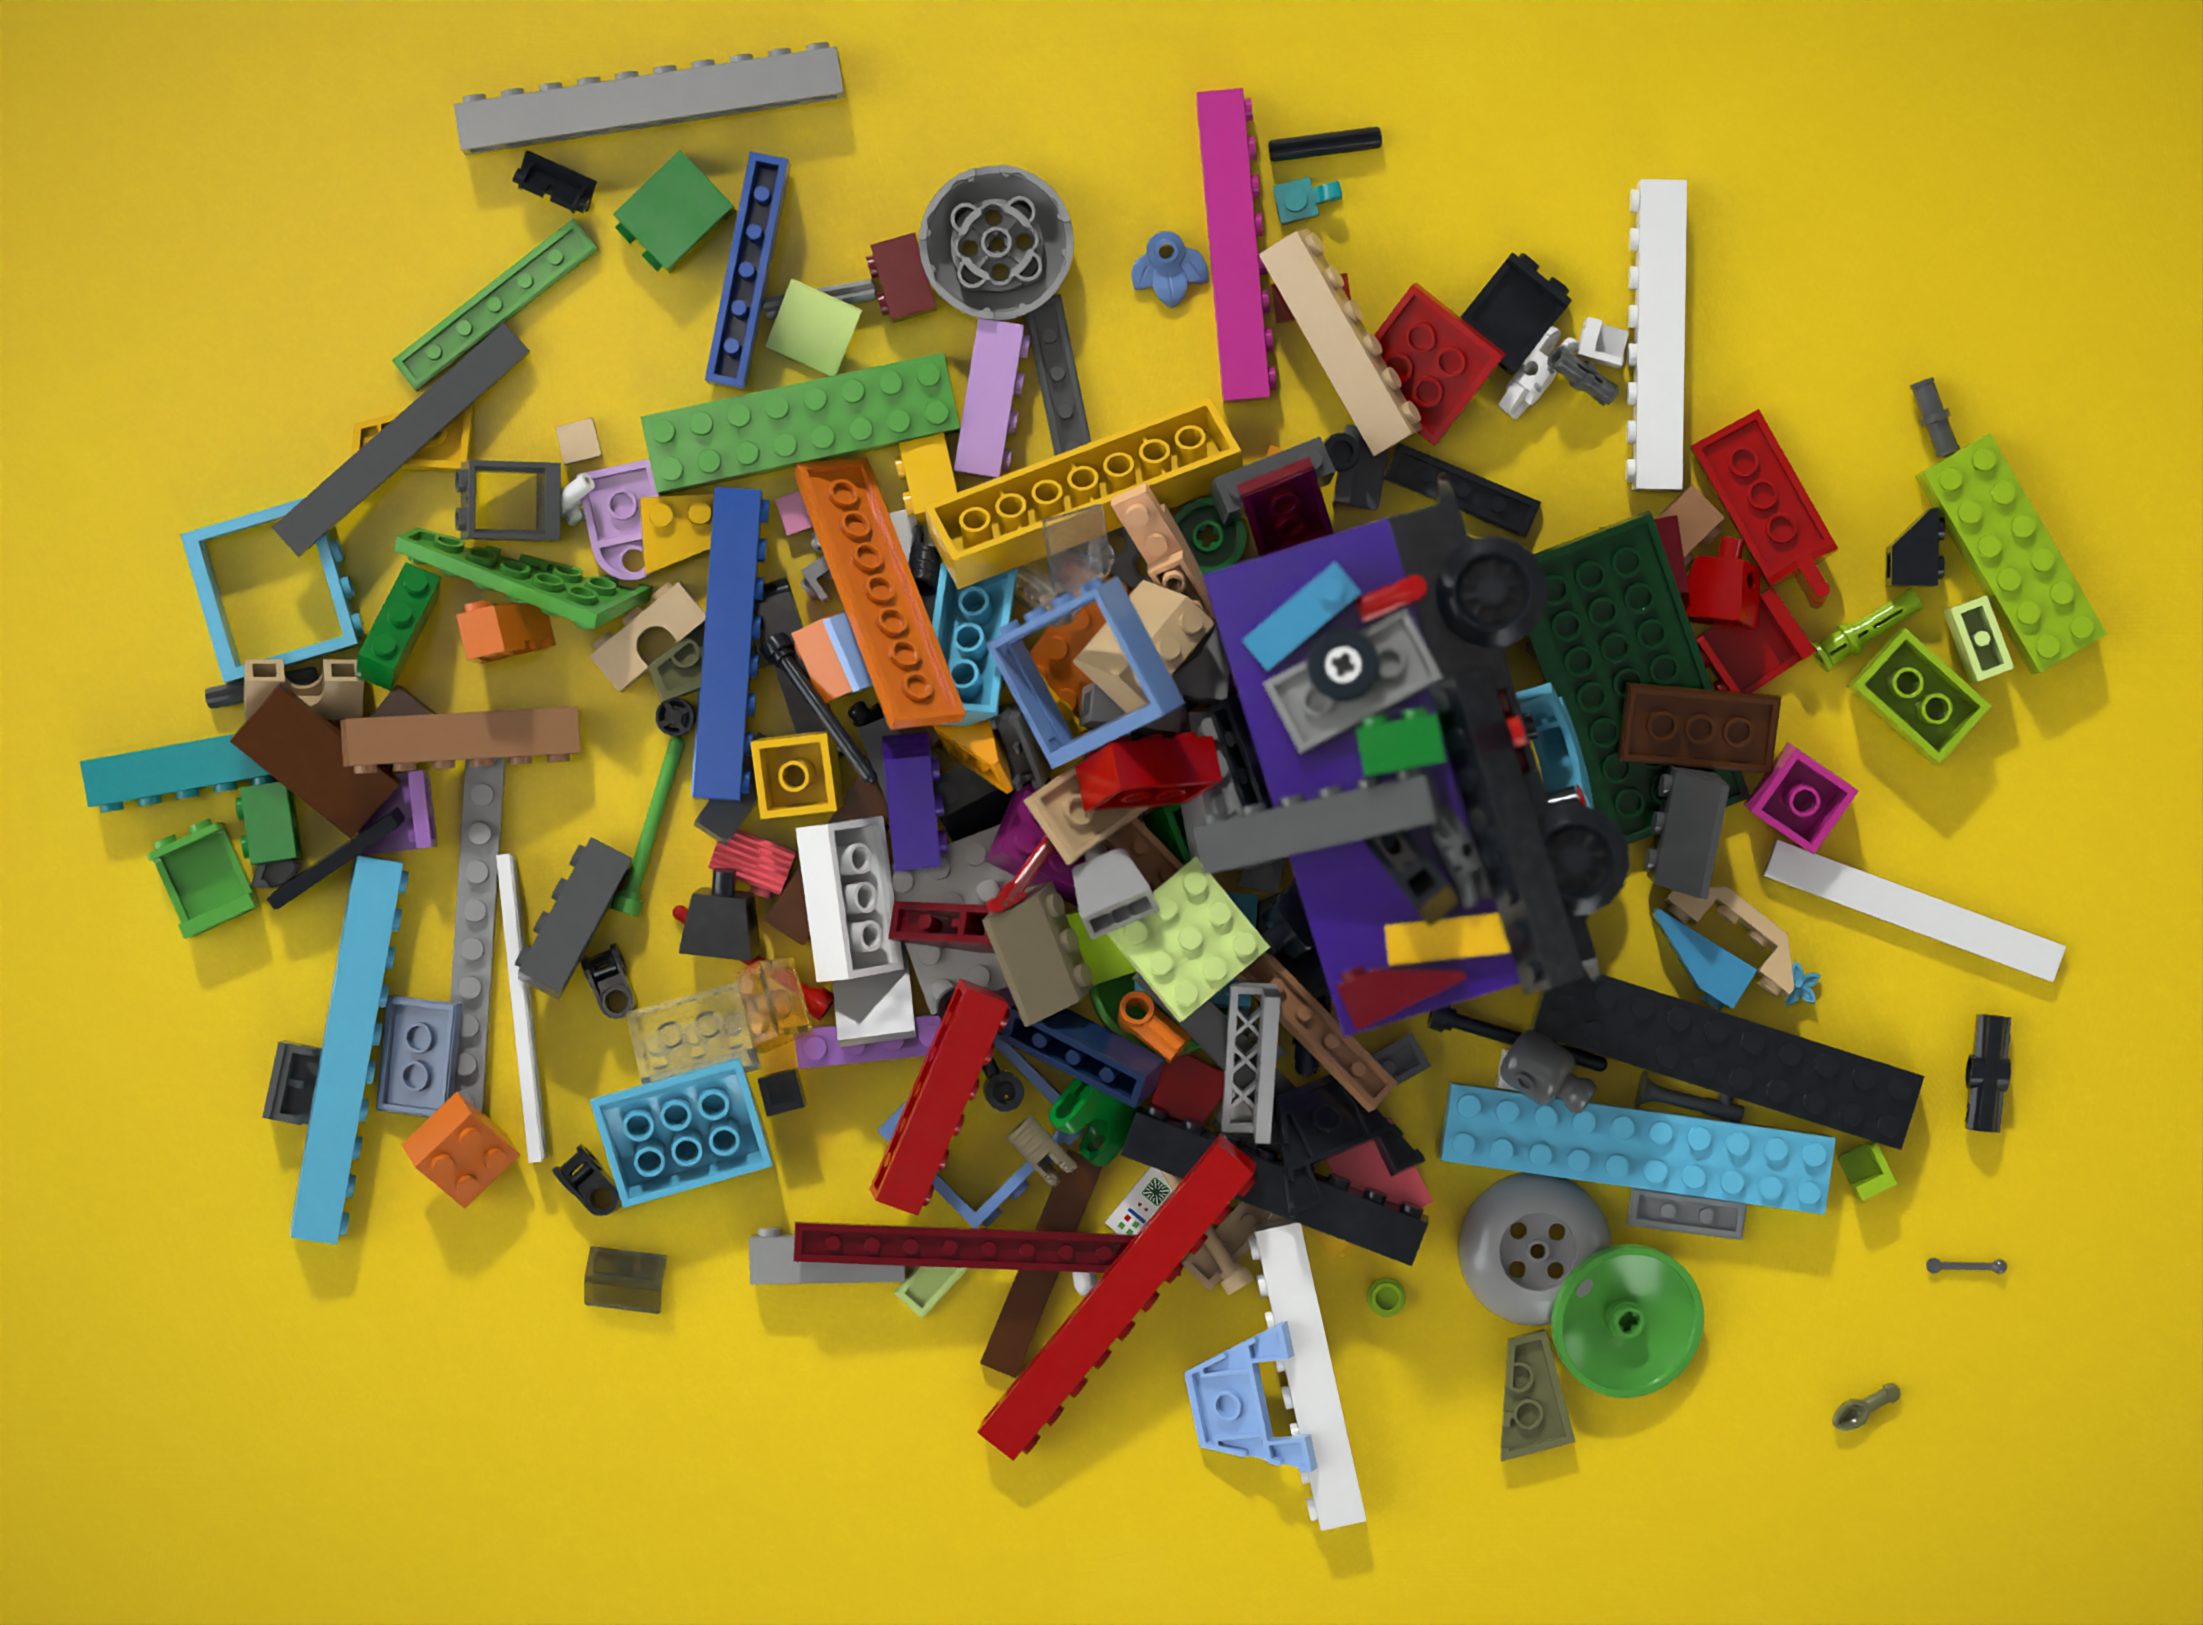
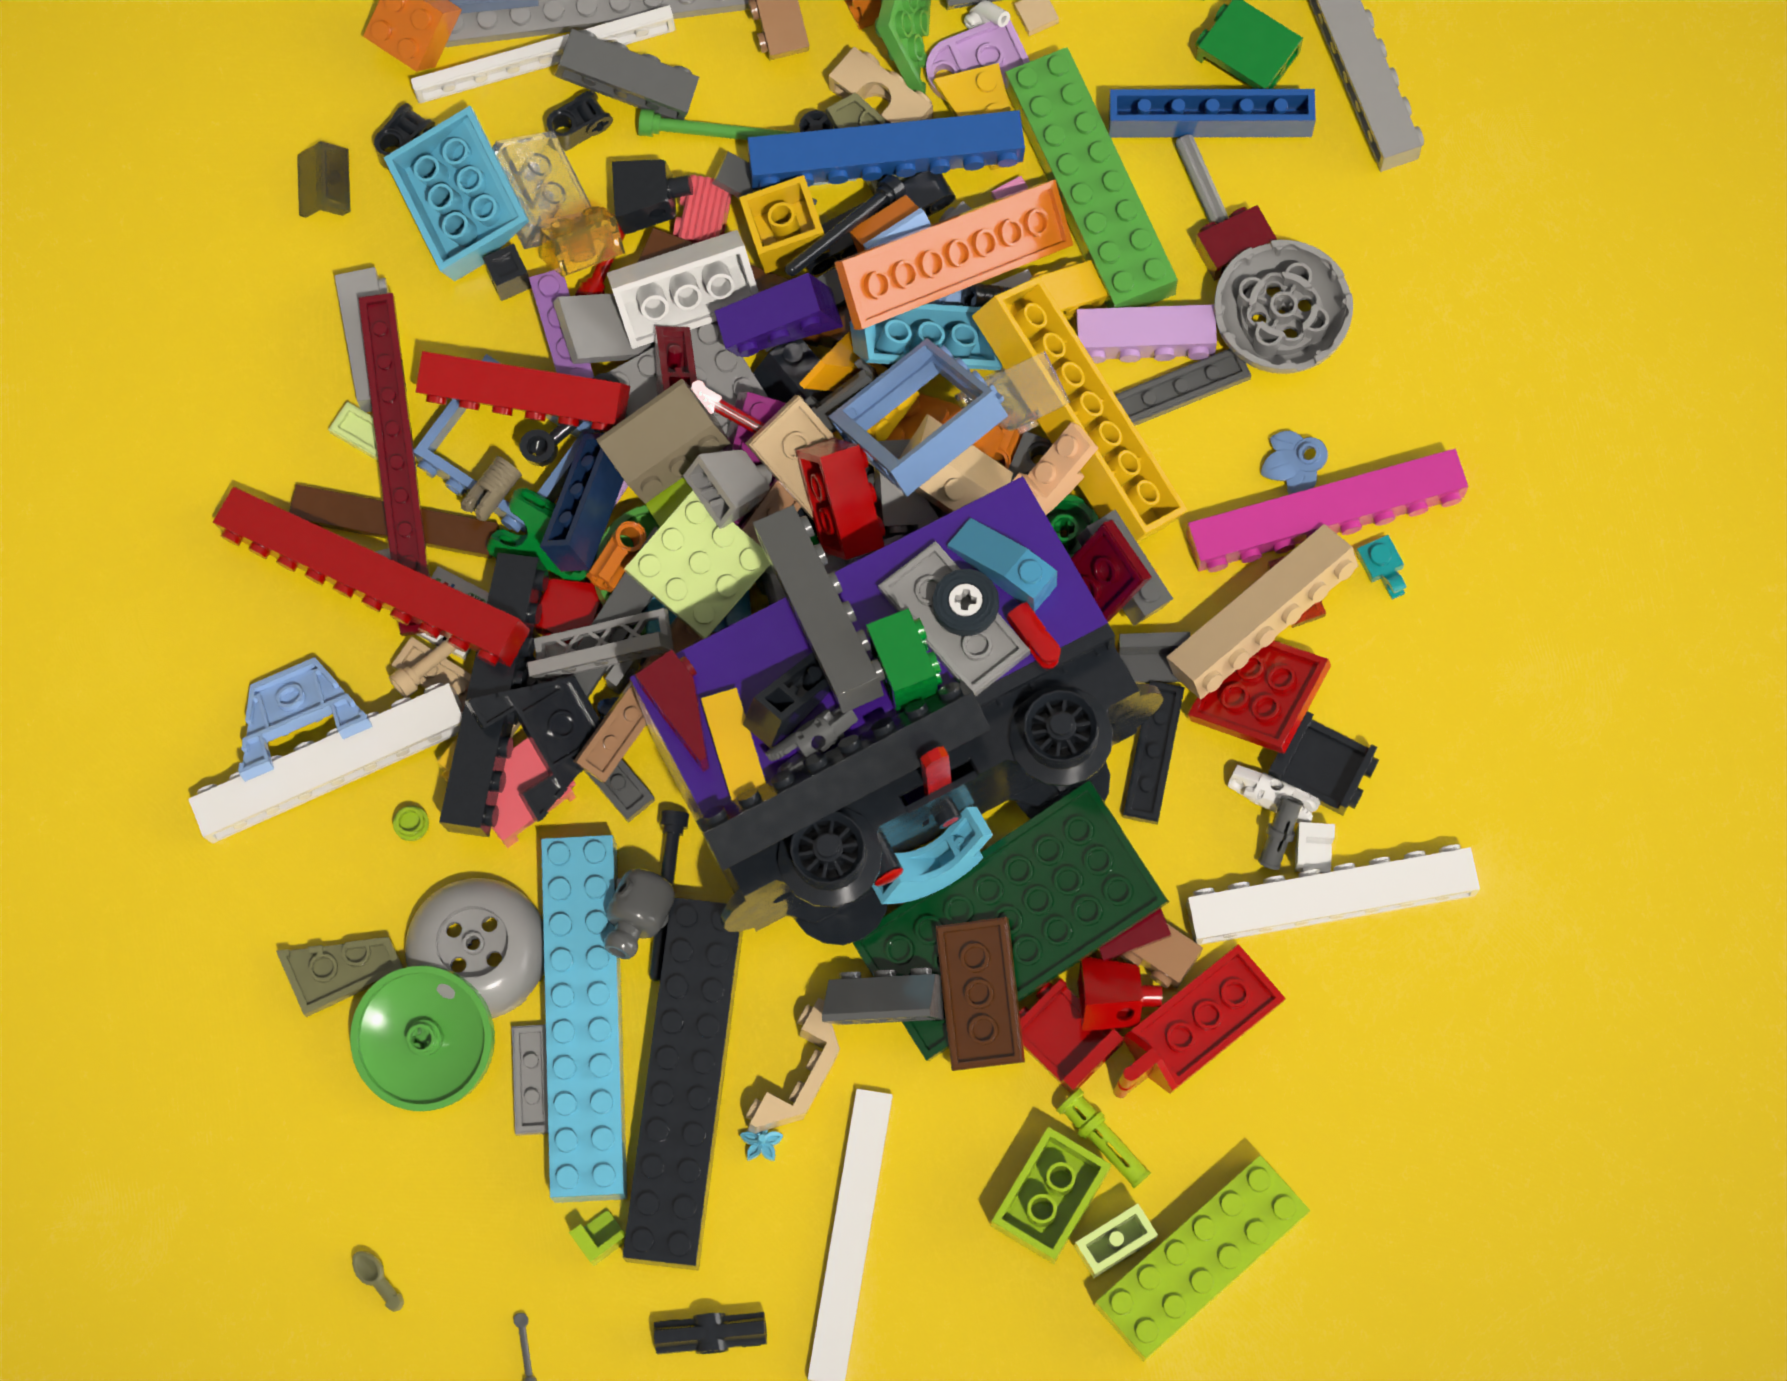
camera: 90 degrees right, 15 degrees down
(813, 328) = (1175, 176): yellowish green piece -> none
(1325, 144) = (1436, 574): black axle -> none
(1342, 450) = (1163, 627): black tile -> none
(1709, 966) = (764, 1051): dark azure slope -> none
(1719, 1108) = (634, 1093): dark grey piece -> none
(1800, 798) = (934, 1103): dark pink brick -> none
(1913, 555) = (1184, 1168): black slope -> none
(1934, 417) = (1315, 1163): dark grey pin -> none

